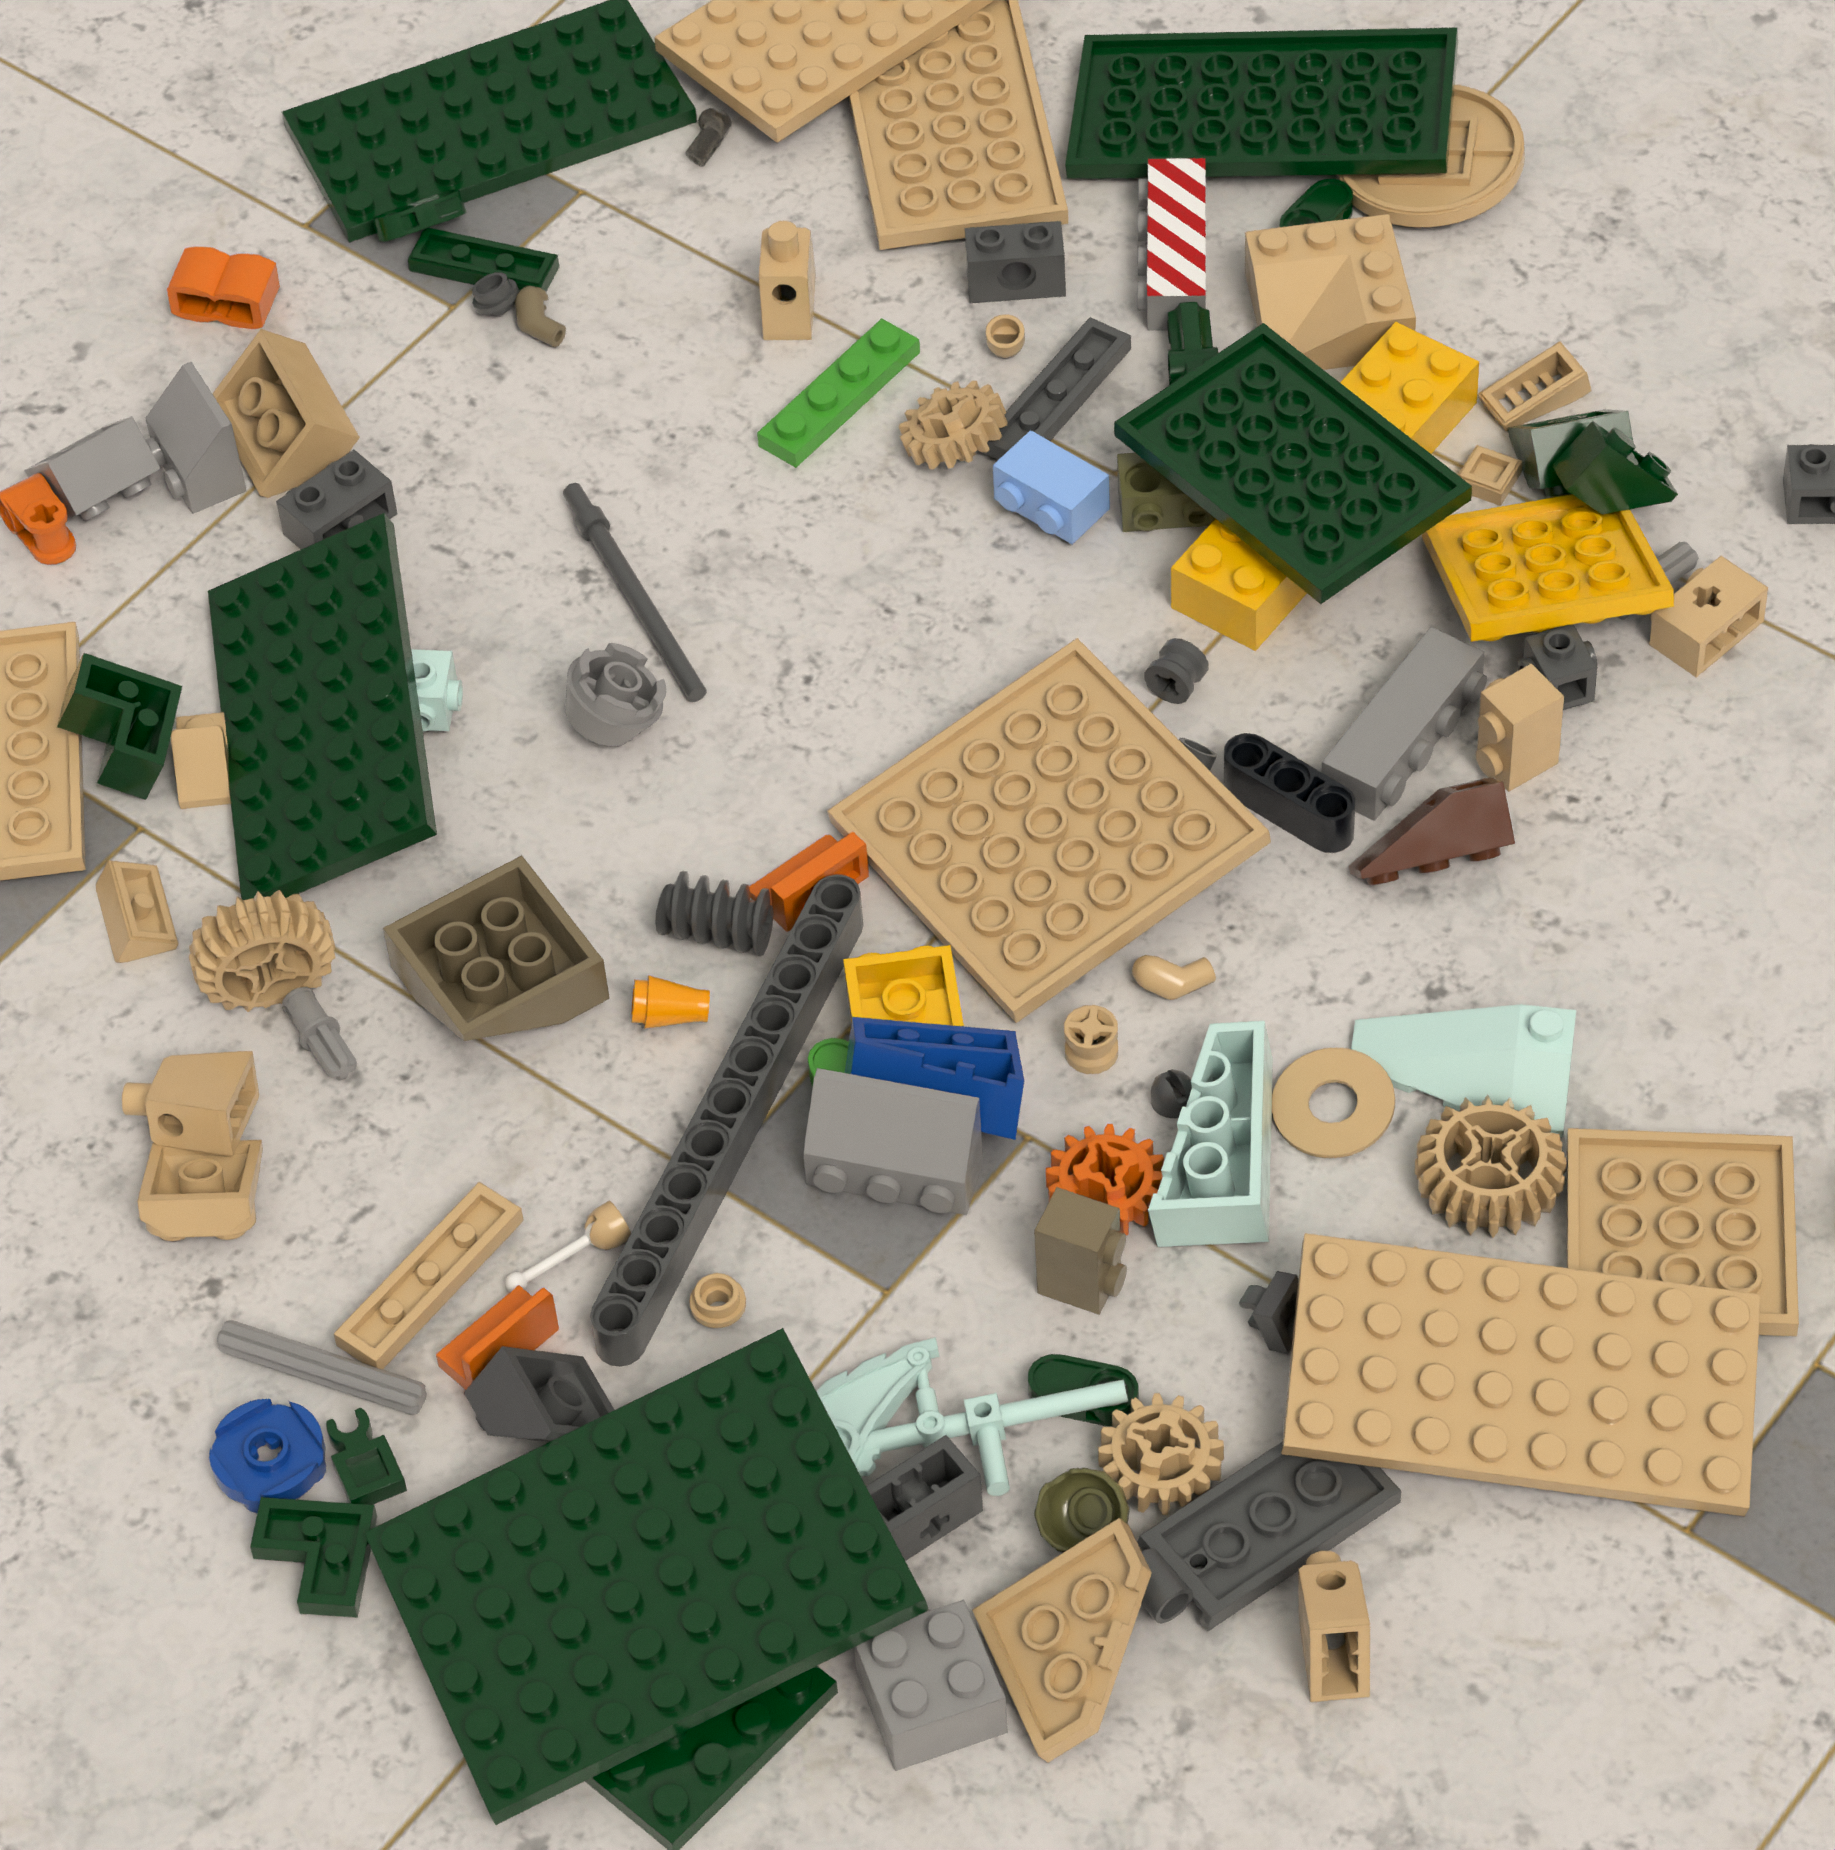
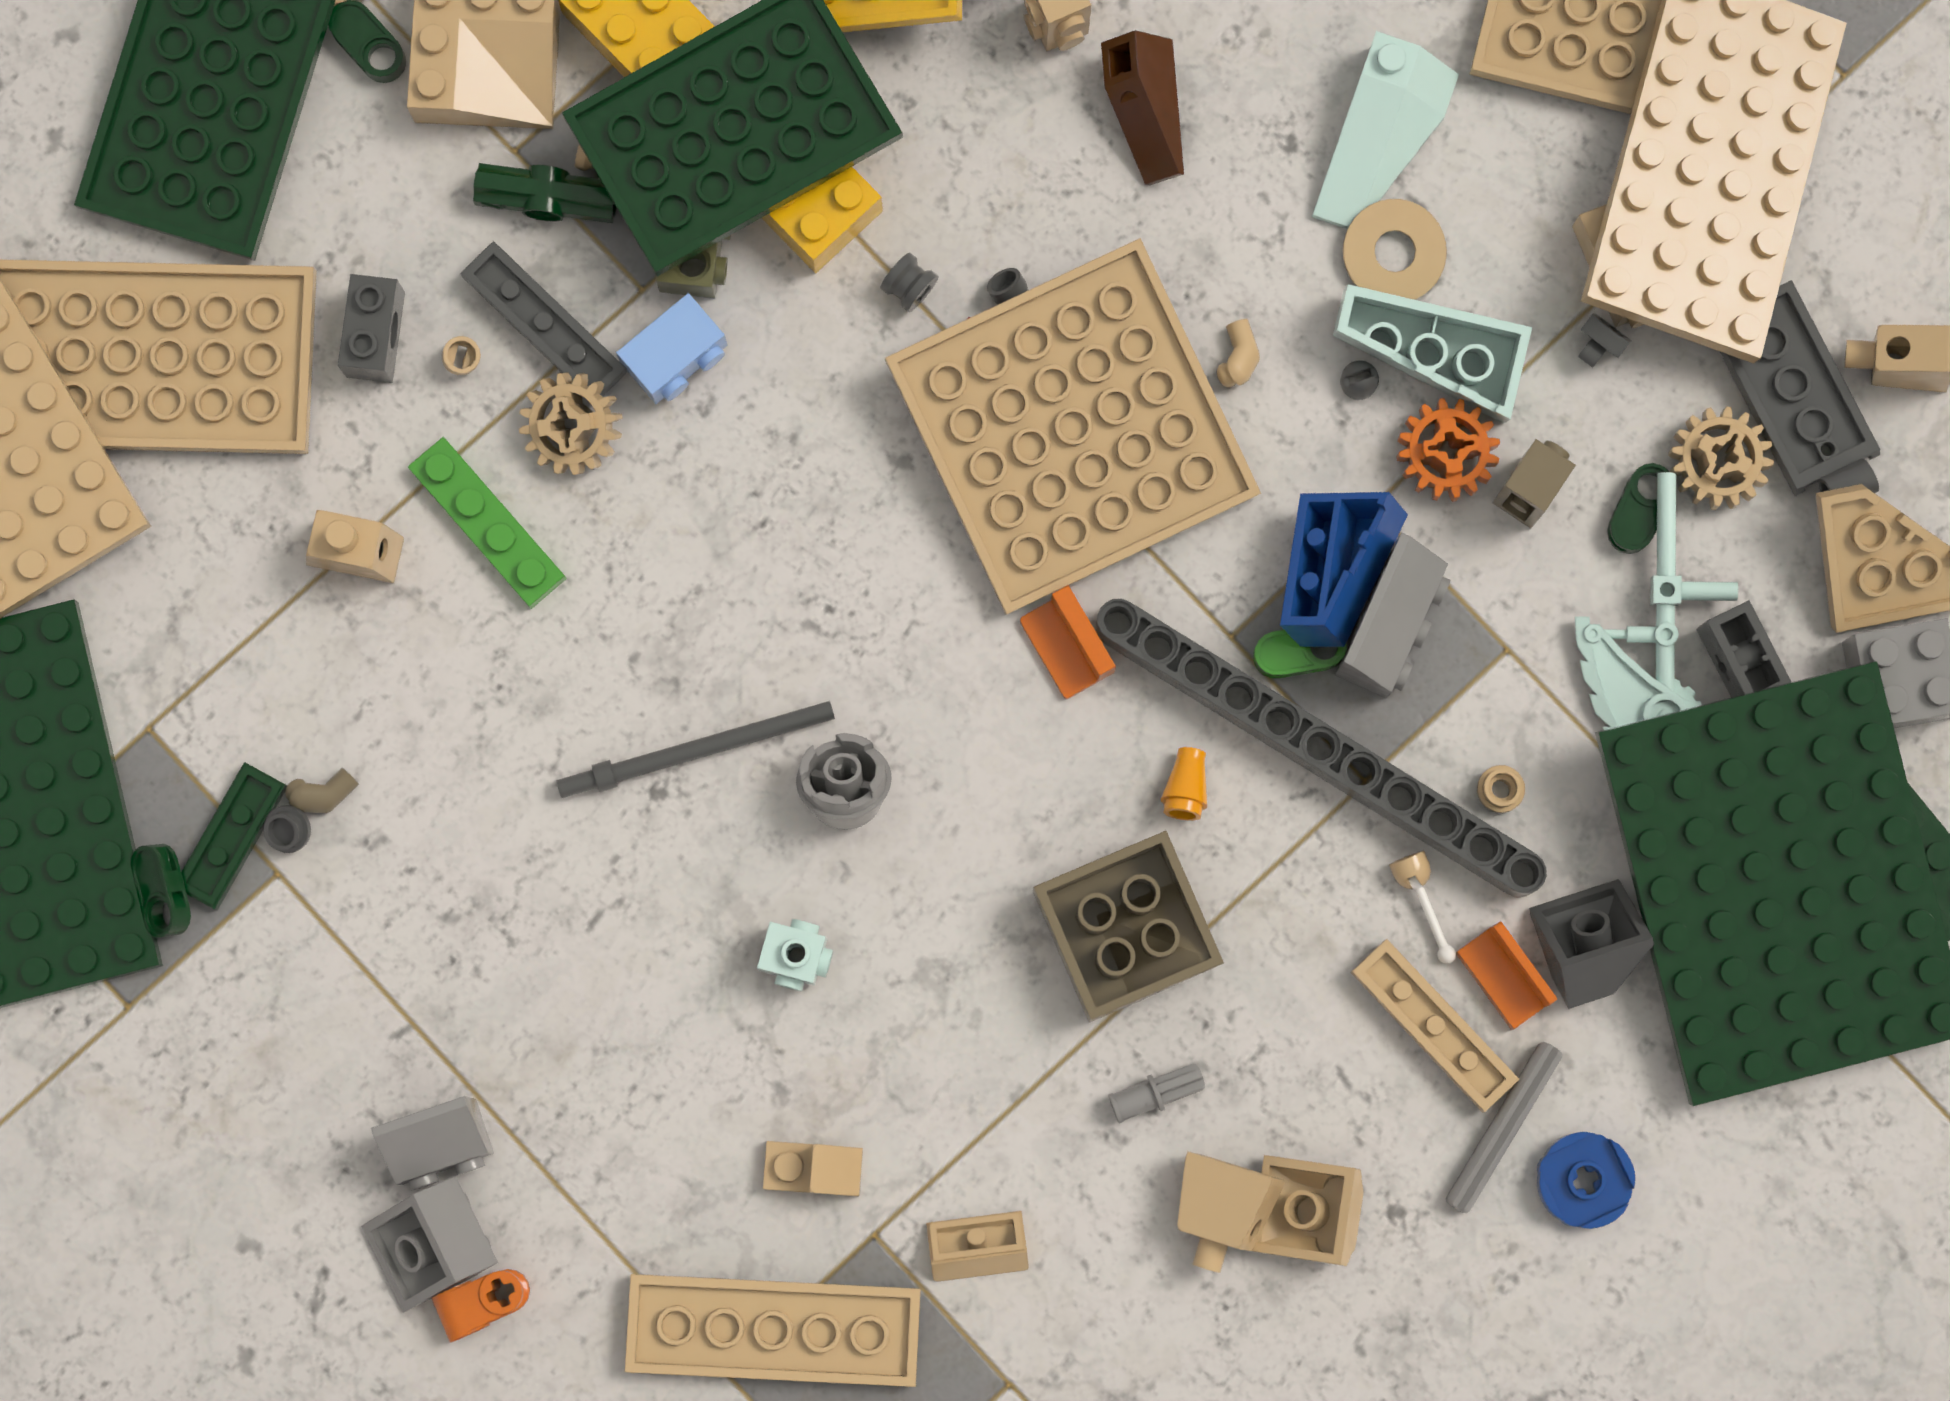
camera: 85 degrees left, 30 degrees up
(127, 713) = (784, 1224): dark green brick -> none
(223, 287) = (212, 1094): orange brick -> none
(261, 950) = (1081, 1132): tan gear -> none
(283, 414) = (404, 1053): tan slope -> none
(321, 712) = (802, 1052): dark green plate -> none
(328, 1541) = (1680, 1134): dark green plate -> none
(335, 500) = (535, 1013): dark grey brick -> none
(364, 1464) = (1615, 1098): dark green plate -> none
(714, 128) = (116, 587): clear smoke arm -> none
(715, 914) = (1103, 727): dark grey piece -> none
(904, 986) = (1235, 582): yellow plate -> none
(1078, 1506) = (1771, 530): olive hair -> none
(1080, 1030) = (1300, 425): tan wheel -> none
(1174, 238) = (378, 176): brick -> none
(1289, 793) = (1076, 194): black beam -> none
(1406, 721) = (1012, 101): light grey brick -> none
(1487, 1184) = (1480, 105): tan gear -> none

